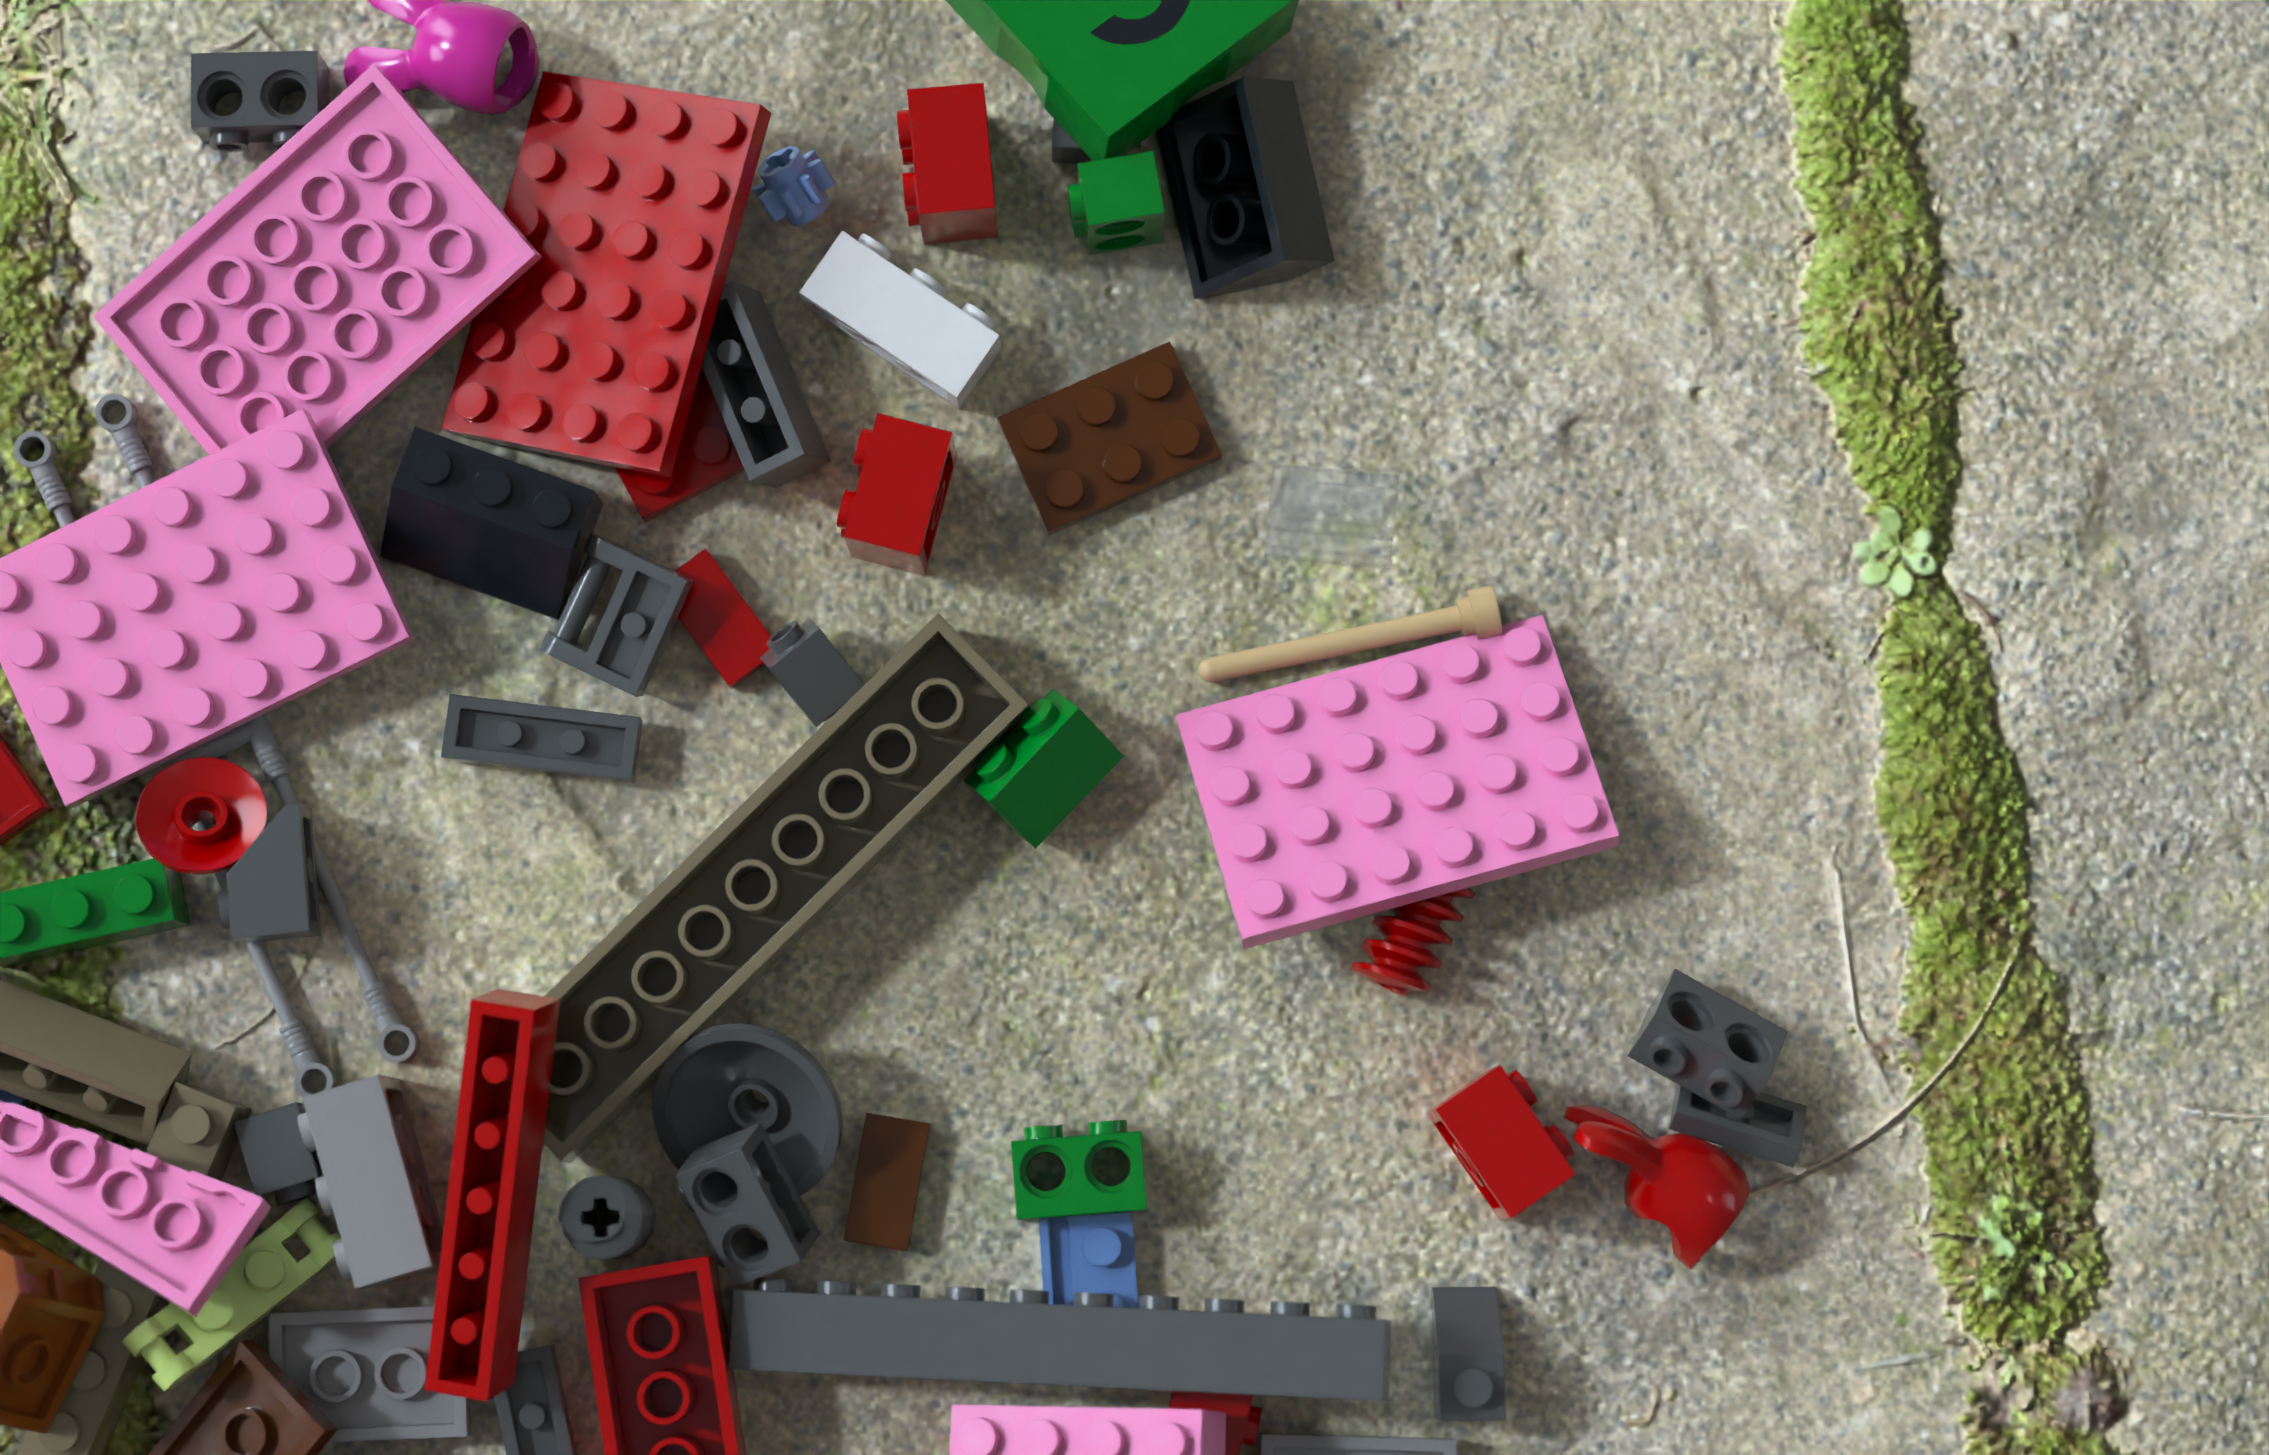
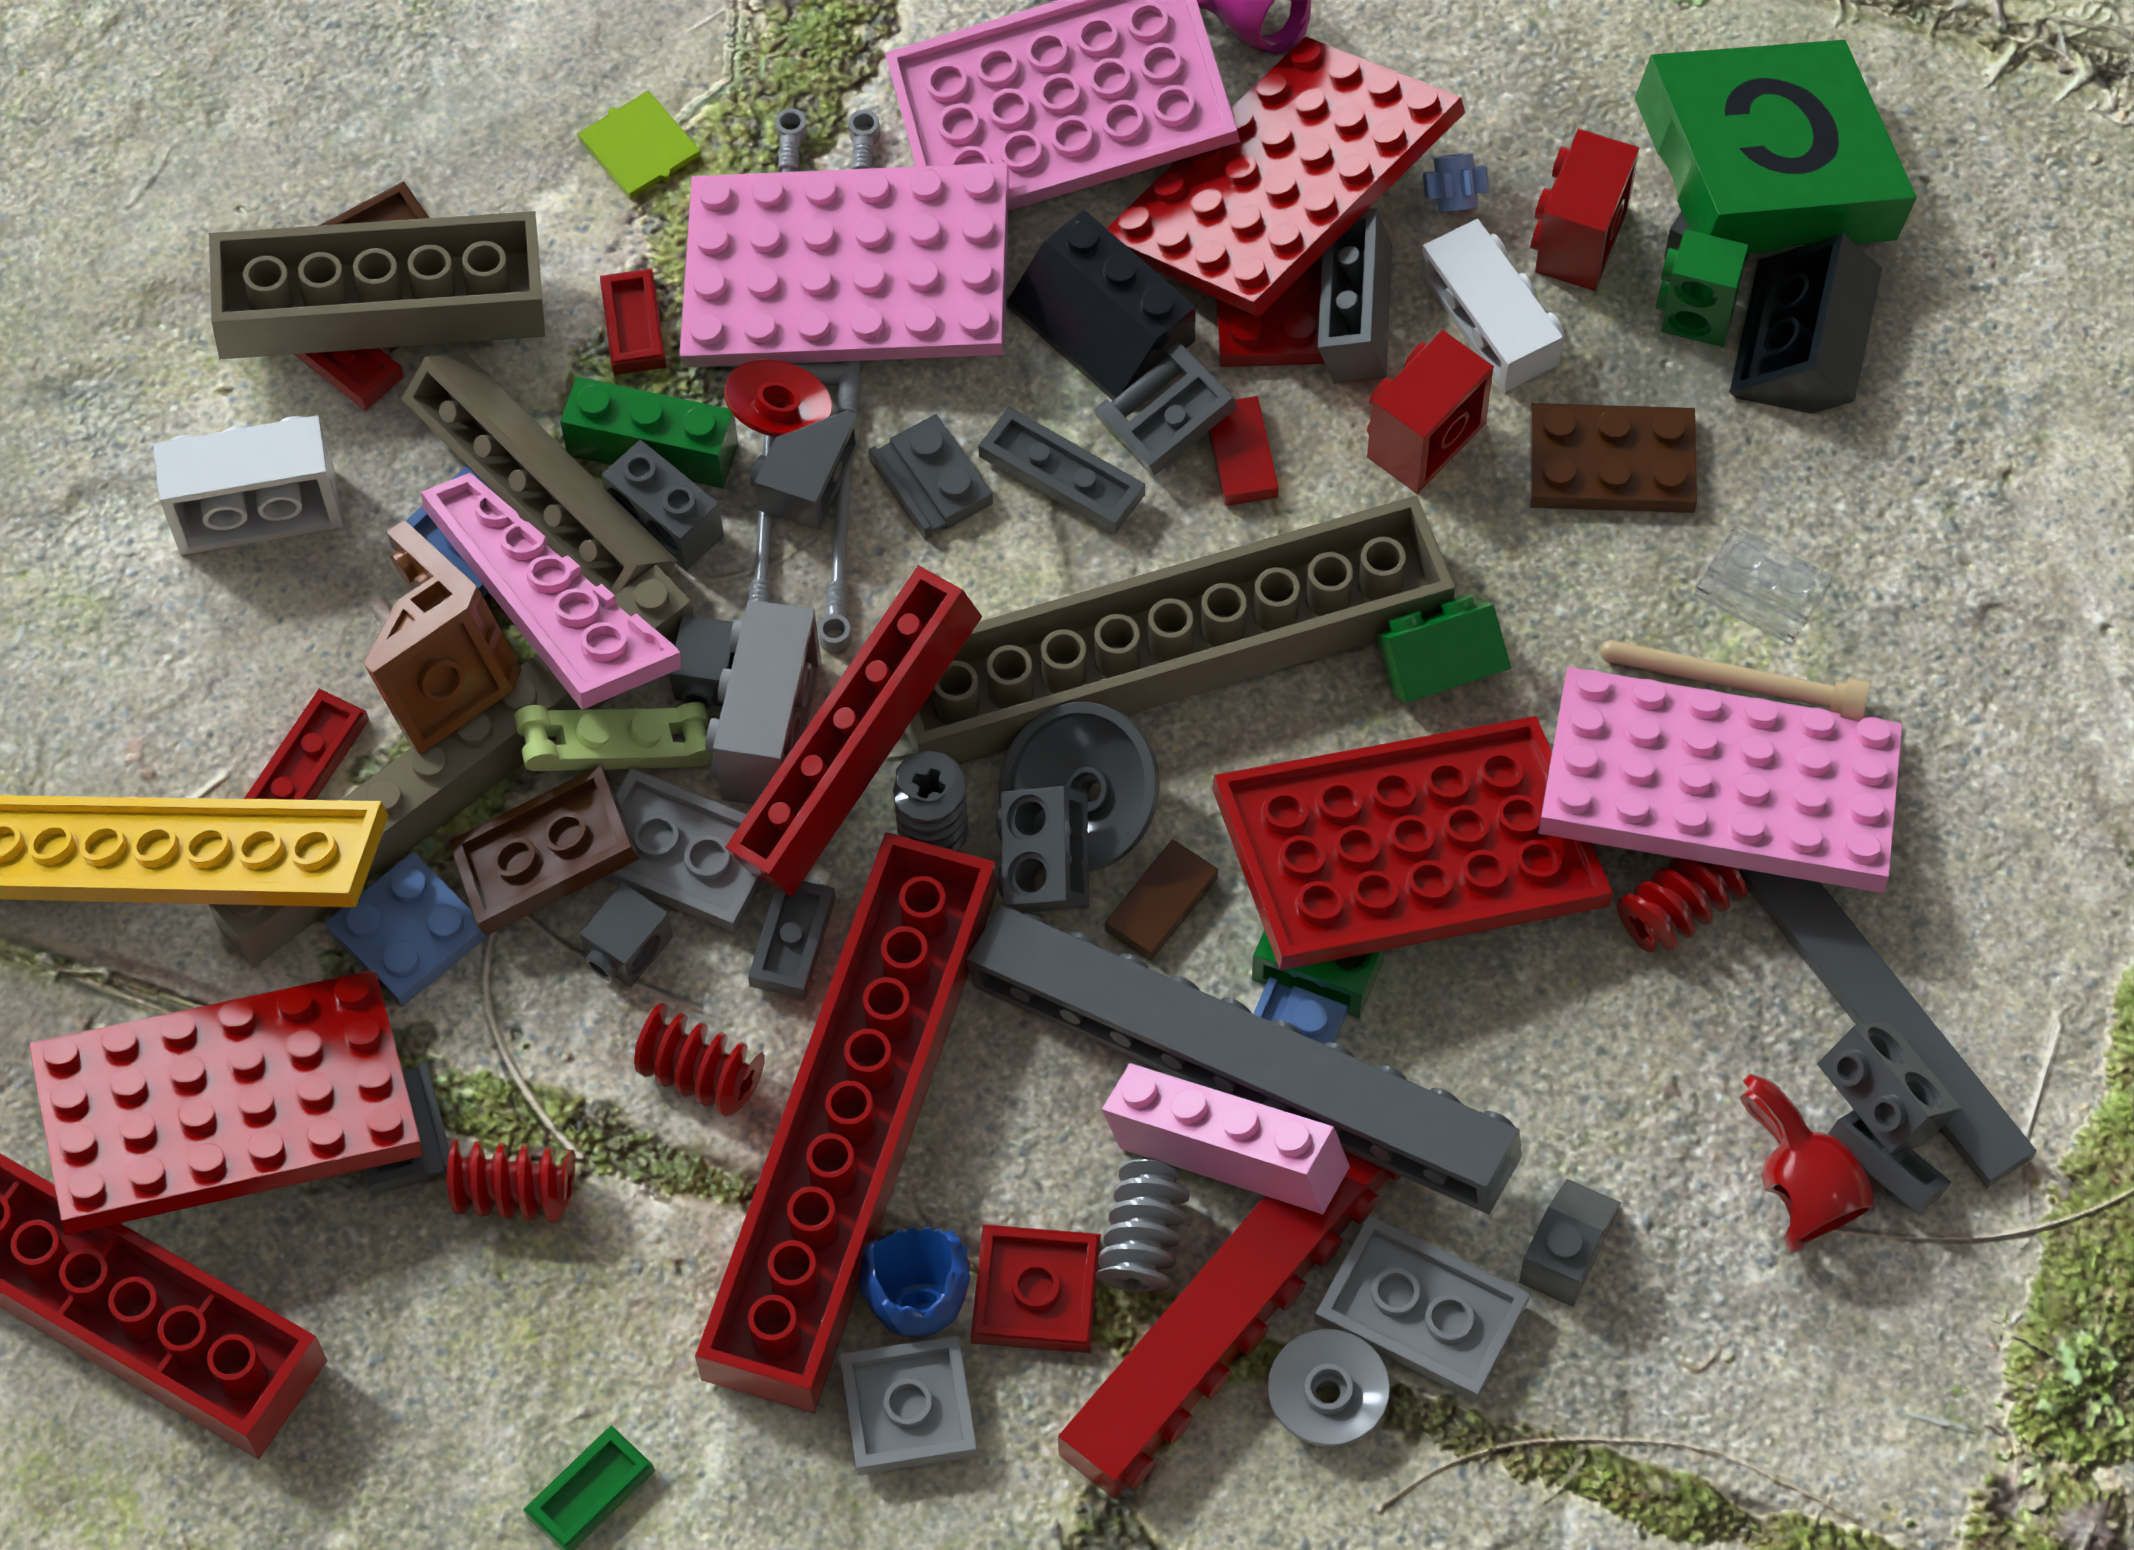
camera: 30 degrees right, 20 degrees down
(140, 992) = (665, 503): none -> dark grey brick
(405, 808) = (931, 476): none -> dark grey plate
(810, 670) = (1293, 498): dark grey brick -> none
(1108, 1017) = (1405, 843): none -> red plate
(1503, 1141) = (1680, 1075): red brick -> none
(1659, 943) = (1871, 993): none -> dark grey tile

